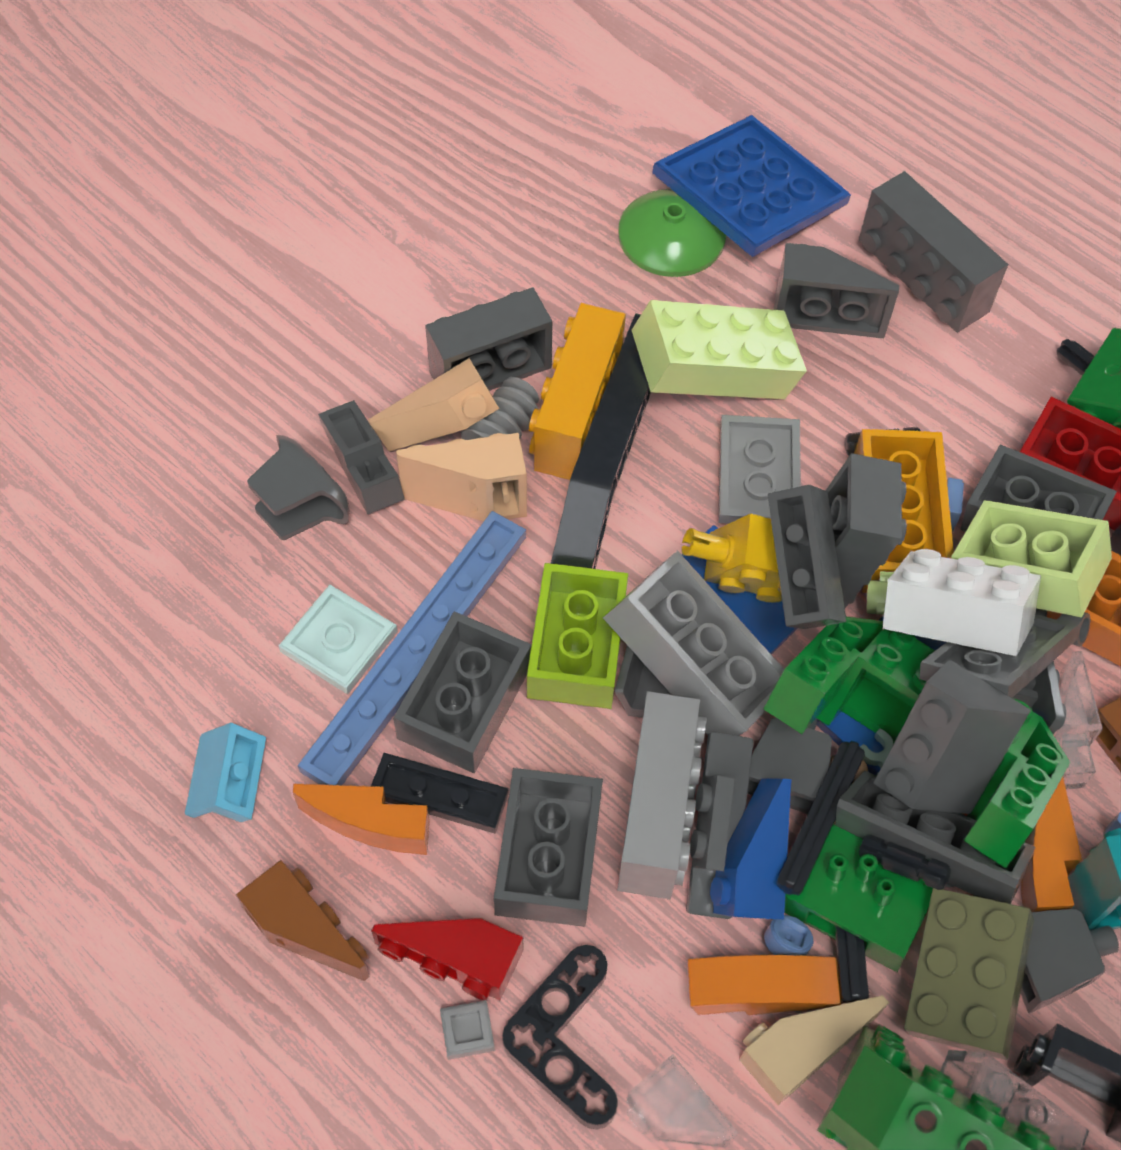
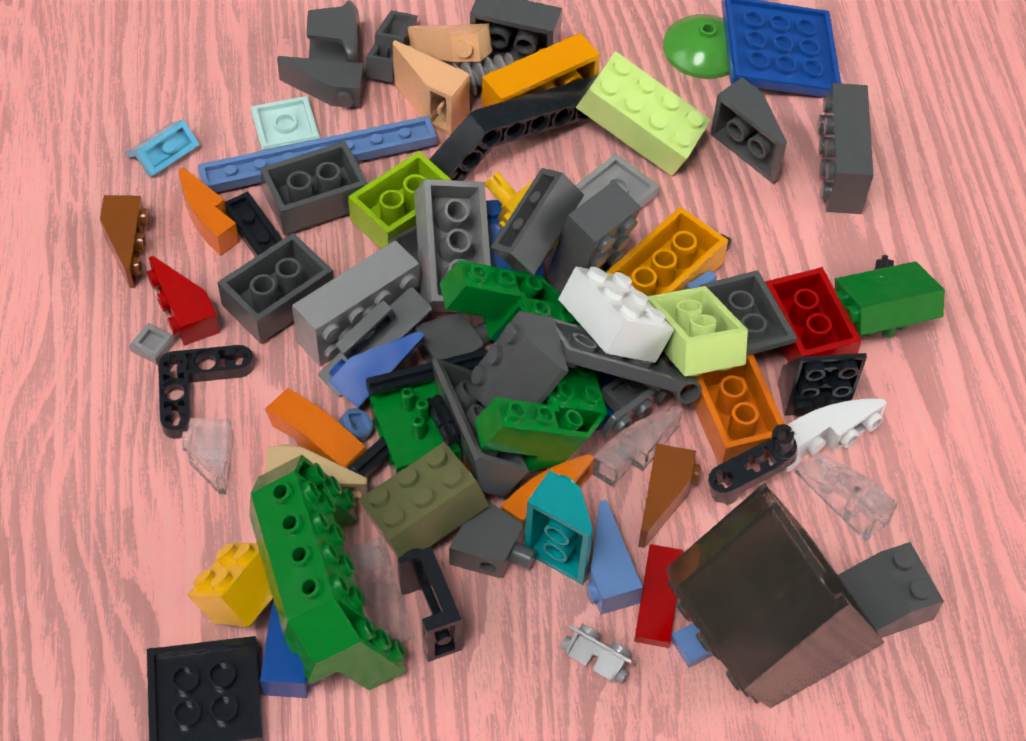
camera: 40 degrees right, 5 degrees down
(336, 550) = (327, 80): none -> dark grey slope

